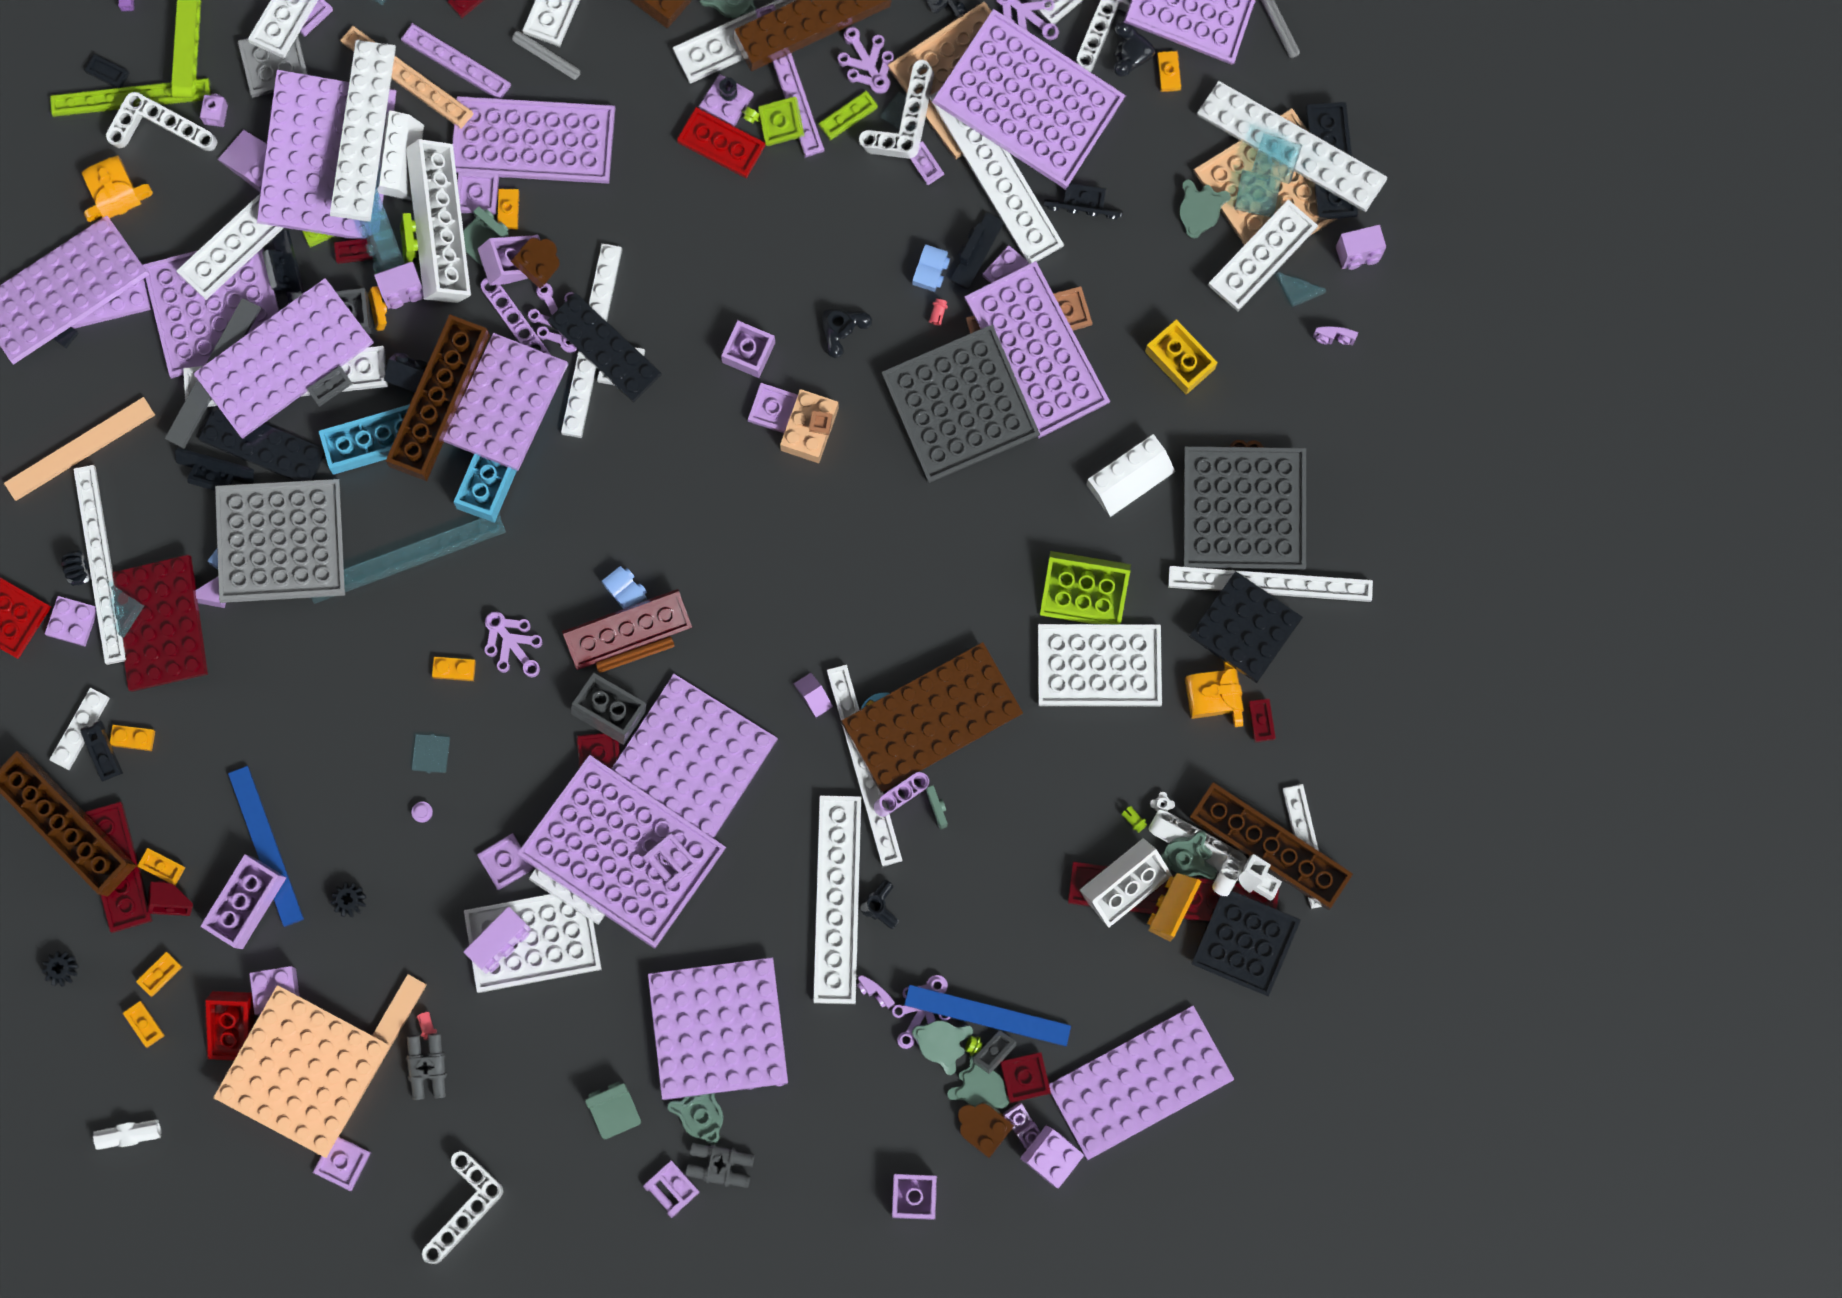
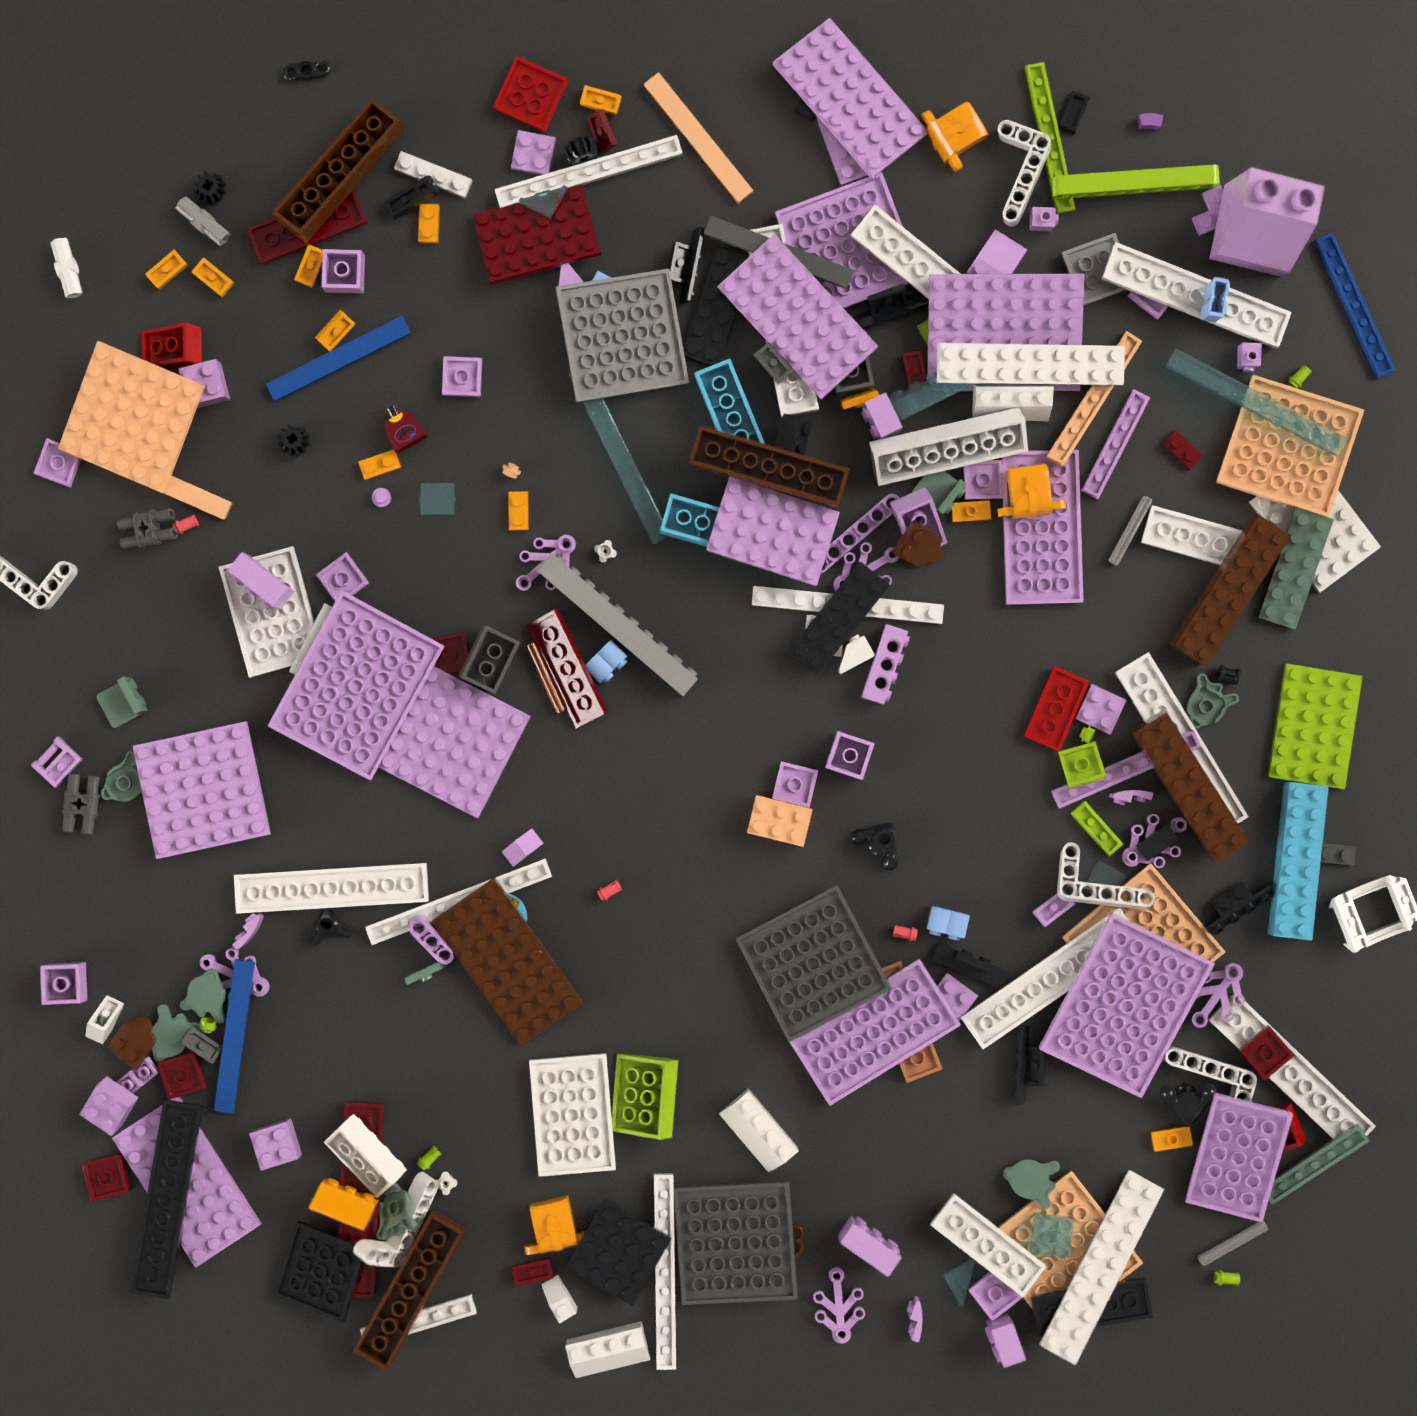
camera: 90 degrees right, 10 degrees up
(25, 545) = (600, 99): none -> light orange plate
(57, 546) = (601, 131): none -> dark red plate
(96, 980) = (202, 221): none -> light grey piece
(167, 900) = (279, 275): dark red slope -> none
(172, 829) = (343, 271): none -> lavender brick
(233, 844) = (335, 330): none -> light orange plate
(243, 902) = (281, 345): lavender brick -> none
(302, 715) = (462, 376): none -> lavender plate
(351, 781) = (403, 429): none -> dark red torso
(386, 811) = (379, 465): none -> light orange plate
(409, 244) = (937, 418): lime plate -> none
(409, 671) = (511, 470): none -> light nougat plate
(496, 146) = (1029, 493): none -> light orange piece
(509, 575) = (600, 550): none -> white plate
(586, 573) = (617, 624): none -> light grey brick
(643, 335) = (855, 653): none -> white slope
(677, 858) = (353, 736): lavender plate -> none
(684, 323) = (889, 634): none -> lavender brick
(726, 83) = (1106, 716): black bush -> none
(817, 78) = (1126, 796): none -> lavender slope
(820, 422) = (778, 832): nougat plate -> none
(867, 56) = (1157, 842): none -> black tile
(867, 608) = (609, 890): none -> coral pin
(958, 1157) = (103, 1019): none -> white slope
(1107, 980) = (275, 1144): none -> lavender brick
(1129, 1169) = (106, 1177): none -> dark red plate
(1157, 1100) = (166, 1199): none -> black plate
(1181, 357) = (879, 1171): yellow brick -> none
(1255, 371) = (870, 1245): none -> lavender brick
(1255, 877) = (378, 1280): white brick -> none
(1276, 158) = (1086, 1254): clear light blue plate -> none
(1291, 694) = (559, 1298): none -> white slope
(1312, 35) = (1226, 1278): none -> lime pin
(1315, 256) = (993, 1295): none -> lavender plate
(1319, 410) = (839, 1309): none -> lavender plant
(1349, 649) = (607, 1349): none -> white slope

